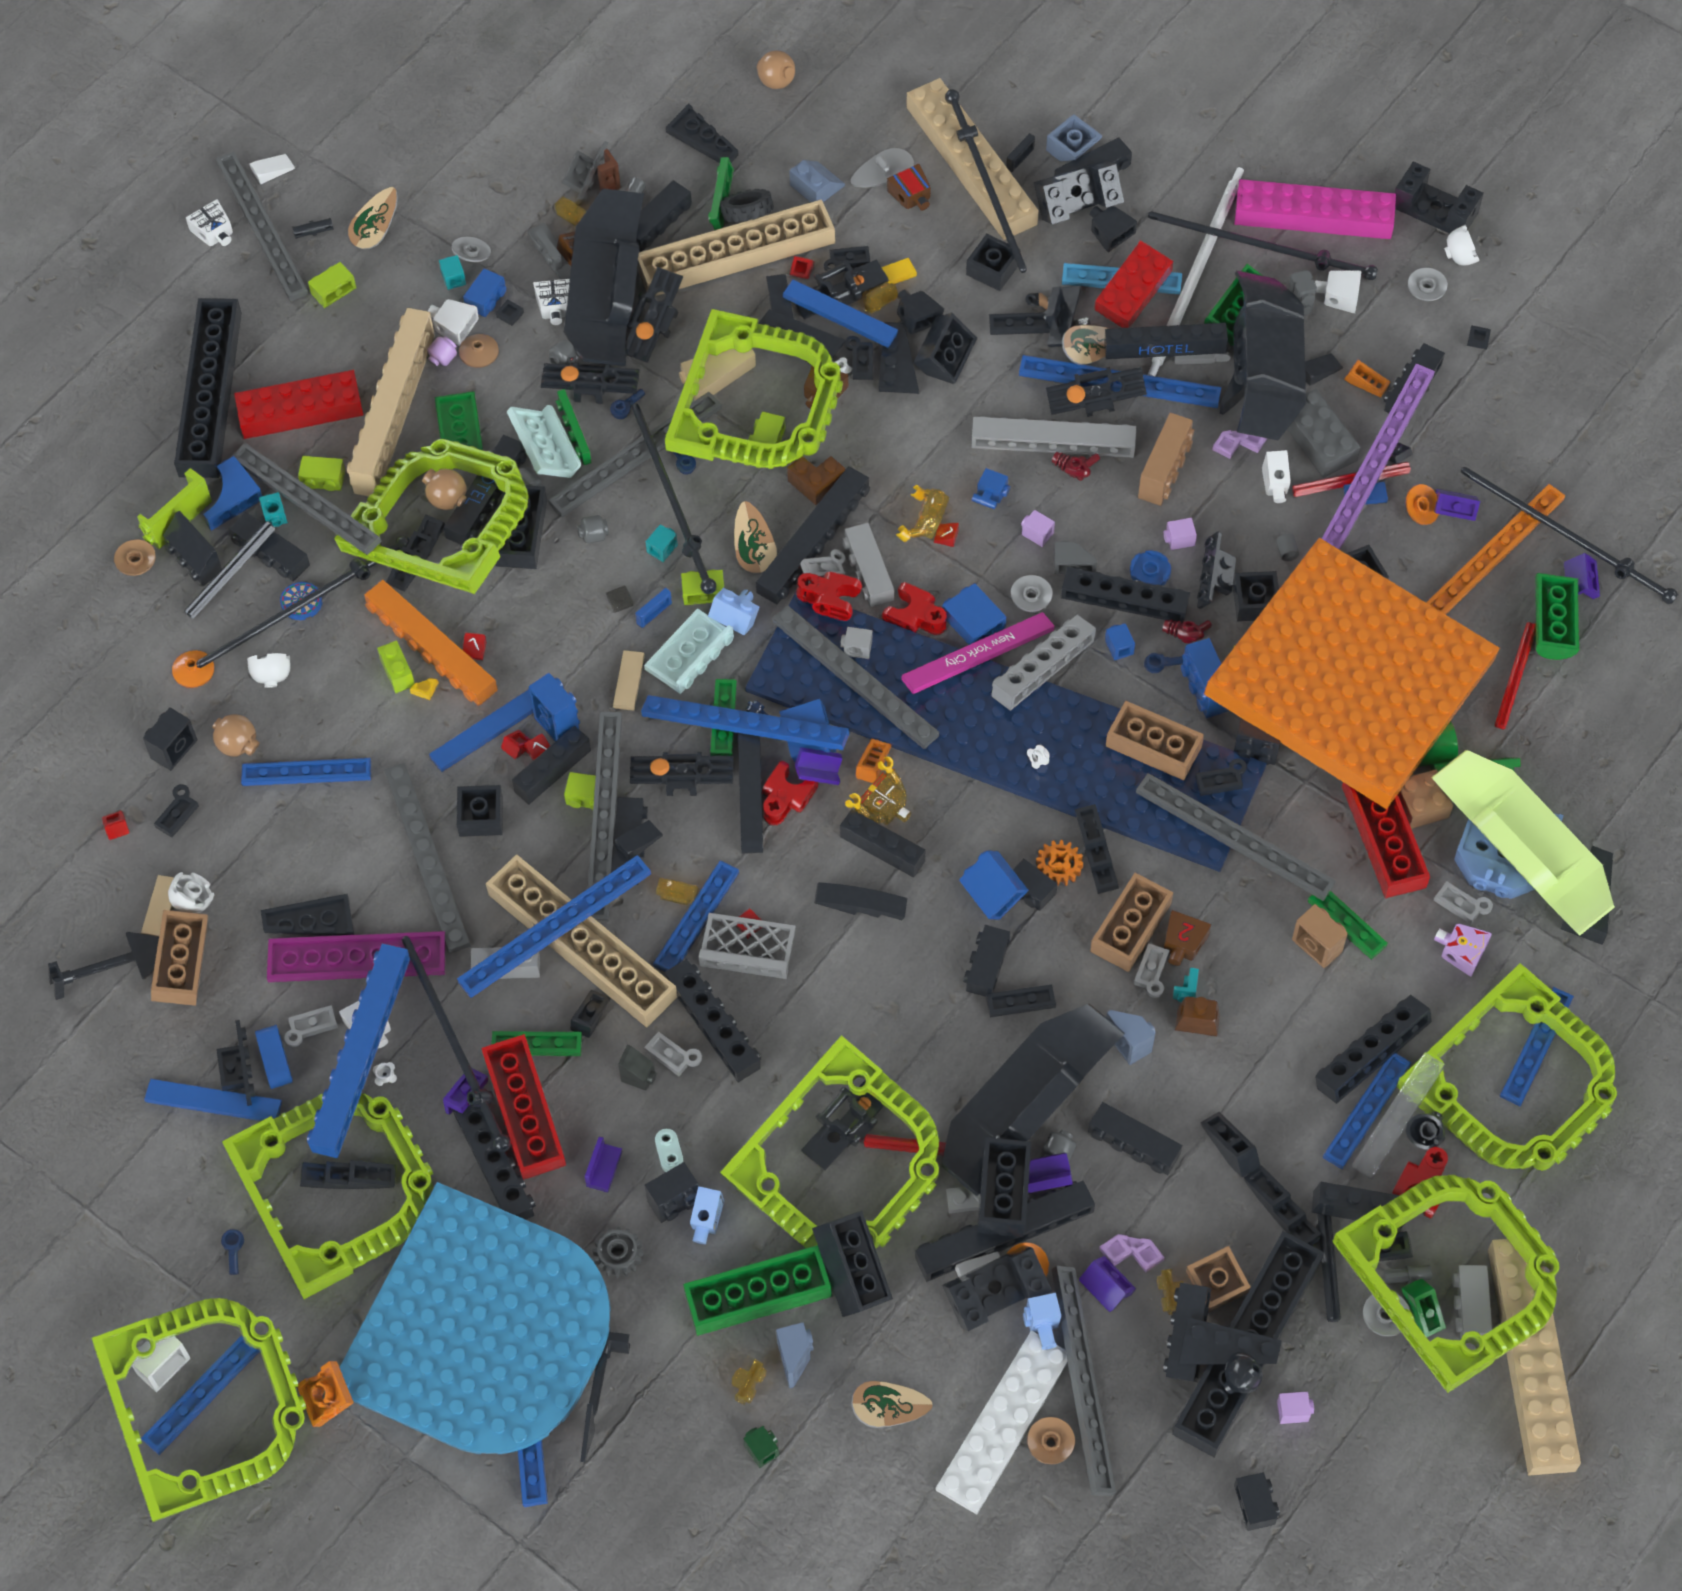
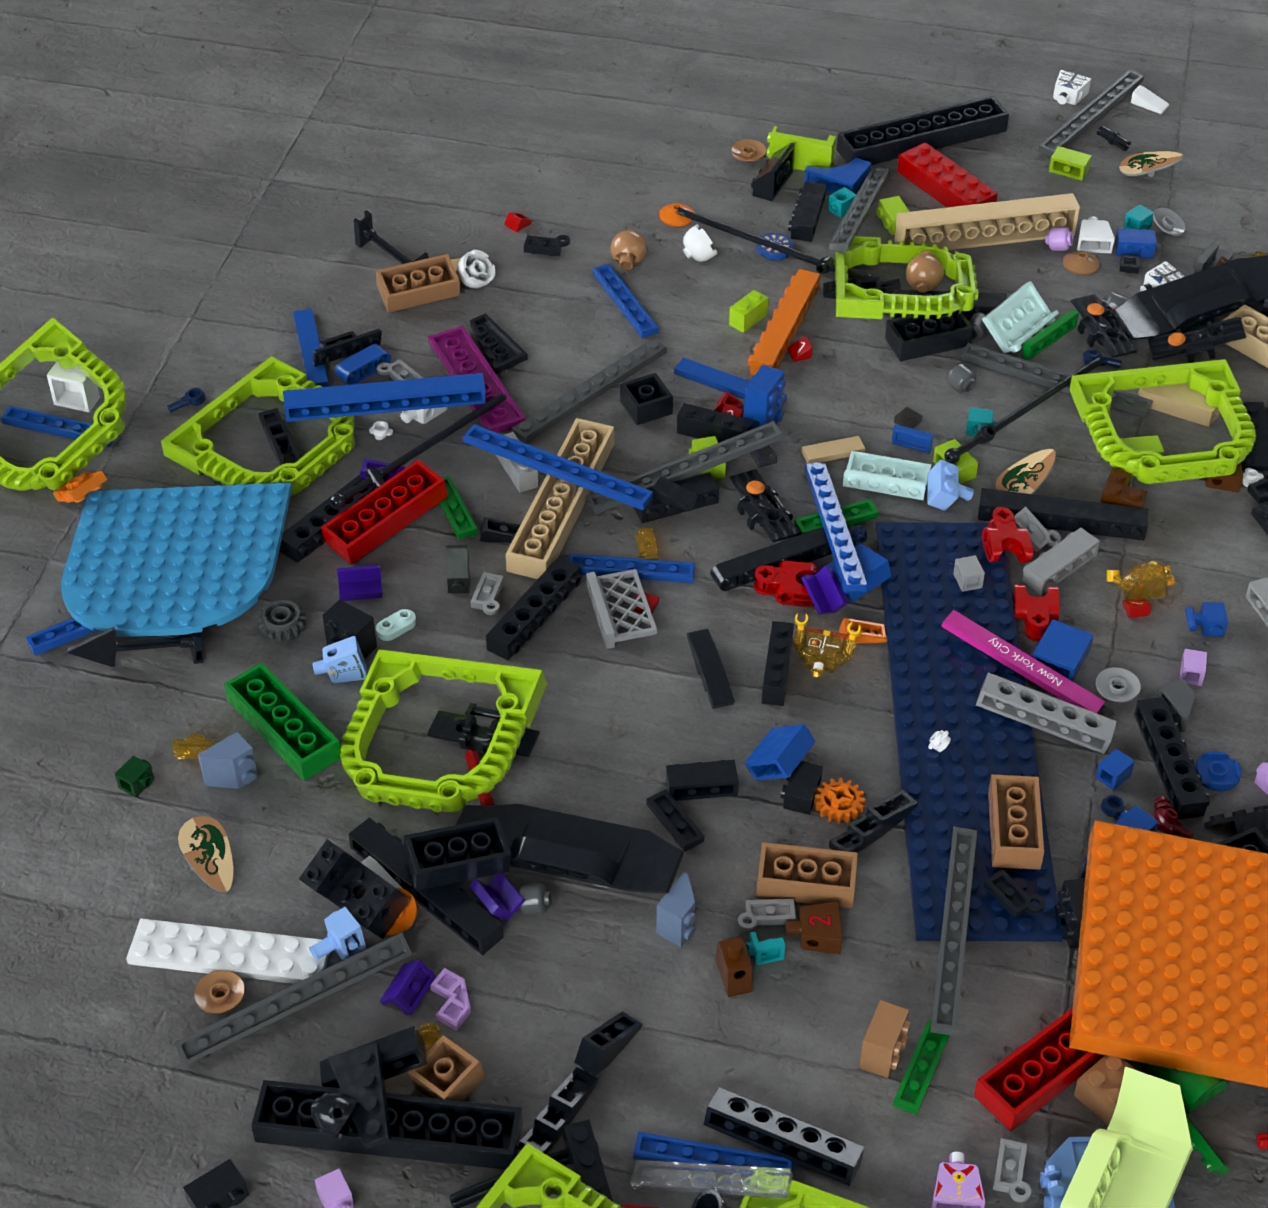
camera: 65 degrees right, 15 degrees down
(170, 738) = (601, 214): black brick -> none
(229, 569) = (771, 195): axle -> none
(425, 688) = (743, 337): yellow tile -> none
(459, 419) = (1004, 273): green tile -> none
(685, 463) = (1070, 414): dark blue plate -> none
(852, 1263) = (334, 774): black slope -> none
(856, 677) = (934, 589): dark grey plate -> none
(1134, 1139) = (572, 958): black brick -> none

